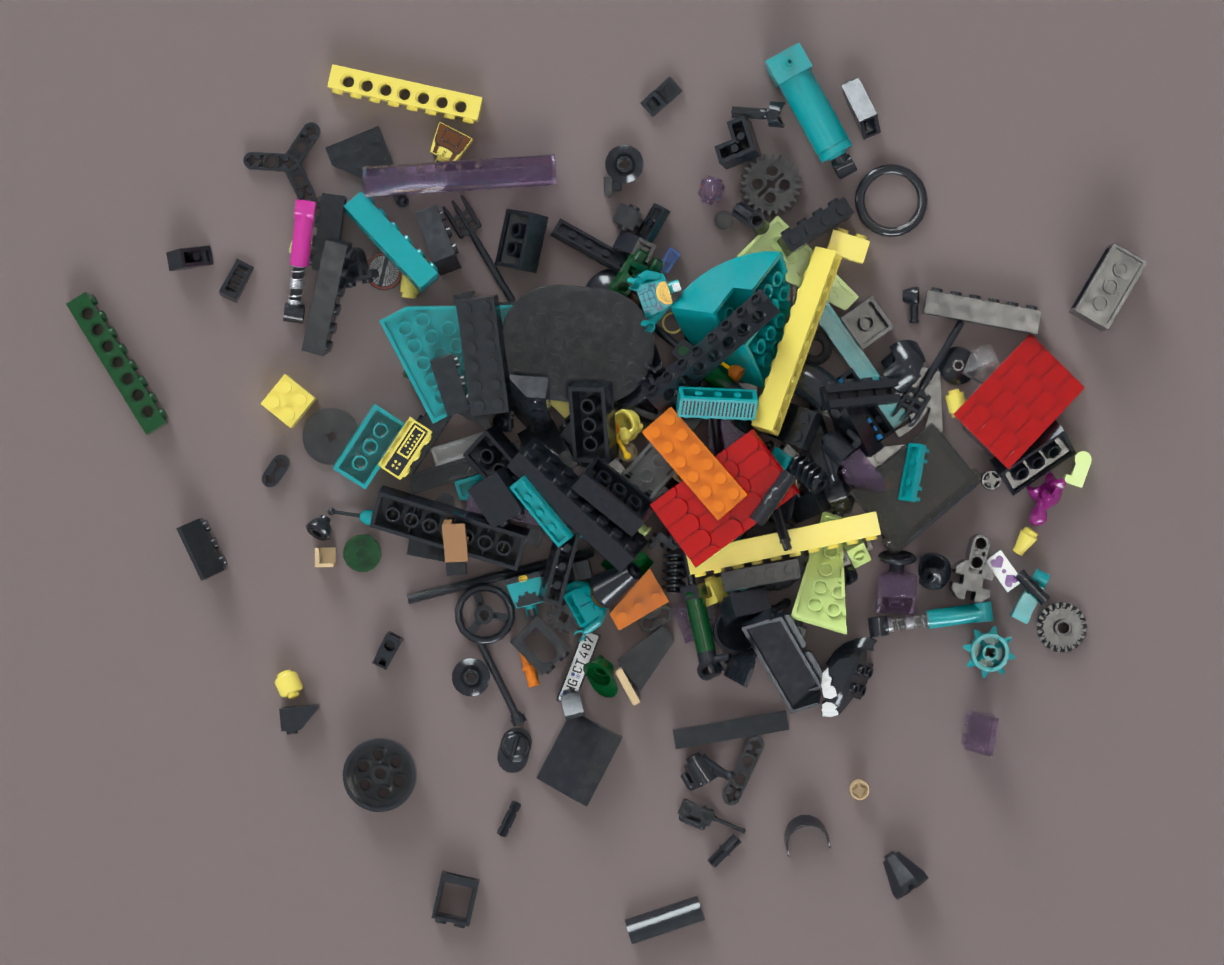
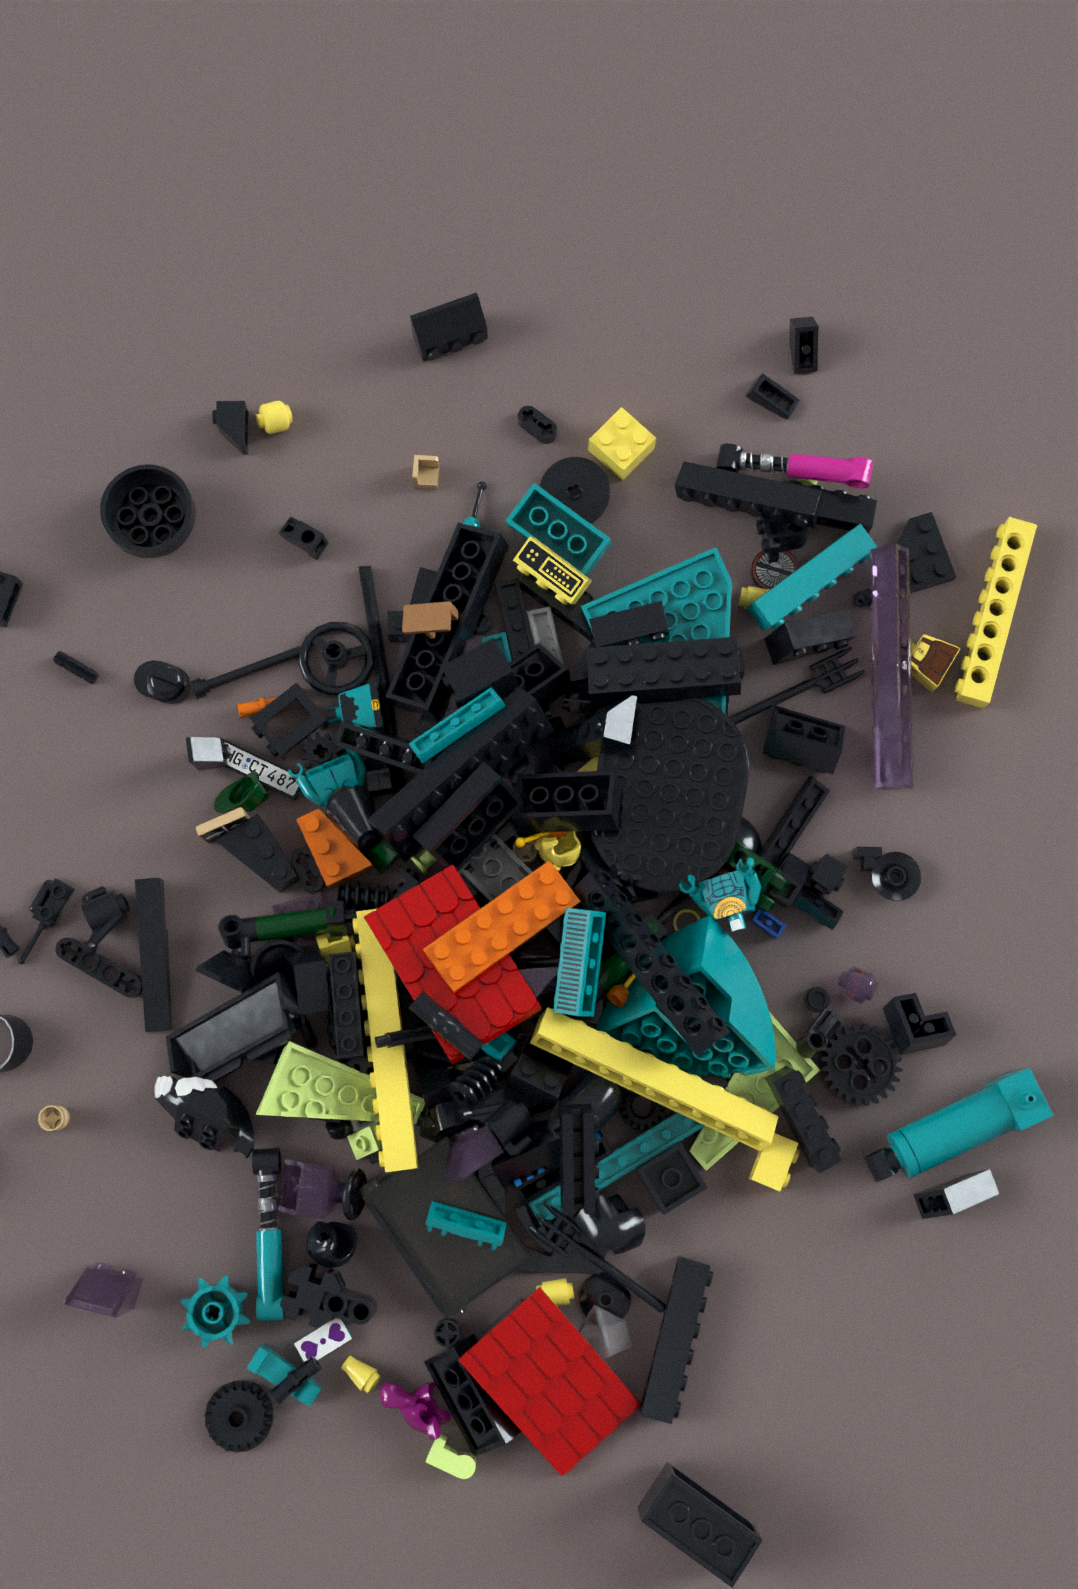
camera: 90 degrees right, 10 degrees down
(77, 308) = (749, 214): dark green brick -> none
(297, 157) = (923, 474): black piece -> none
(320, 528) = (463, 469): black brick -> none
(362, 553) = (427, 518): dark green tile -> none
(471, 687) = (255, 623): black dish -> none
(579, 758) = (138, 760): black slope -> none
(661, 97) = (979, 931): black slope -> none
(772, 114) = (953, 1073): black piece -> none
(860, 203) = (796, 1247): black wedge -> none
(911, 297) = (701, 1243): black bar -> none

